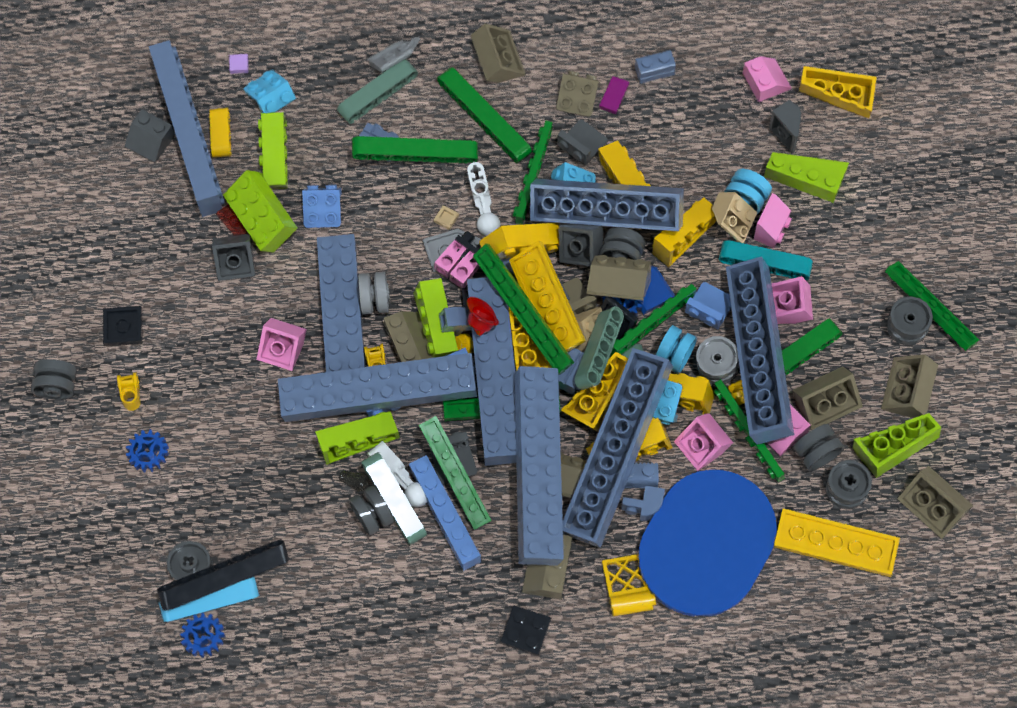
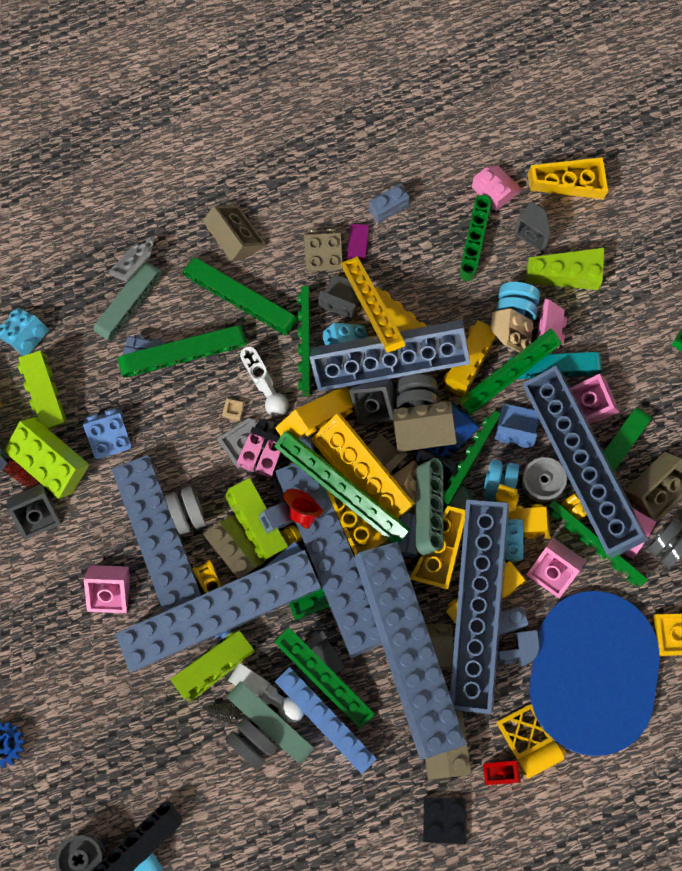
camera: 15 degrees left, 5 degrees up
(591, 604) = (501, 773): none -> red slope
(605, 153) = (373, 305): none -> yellow plate
(676, 358) = (507, 495): none -> yellow piece
(718, 251) = (510, 371): none -> green plate
(729, 113) = (475, 230): none -> green beam

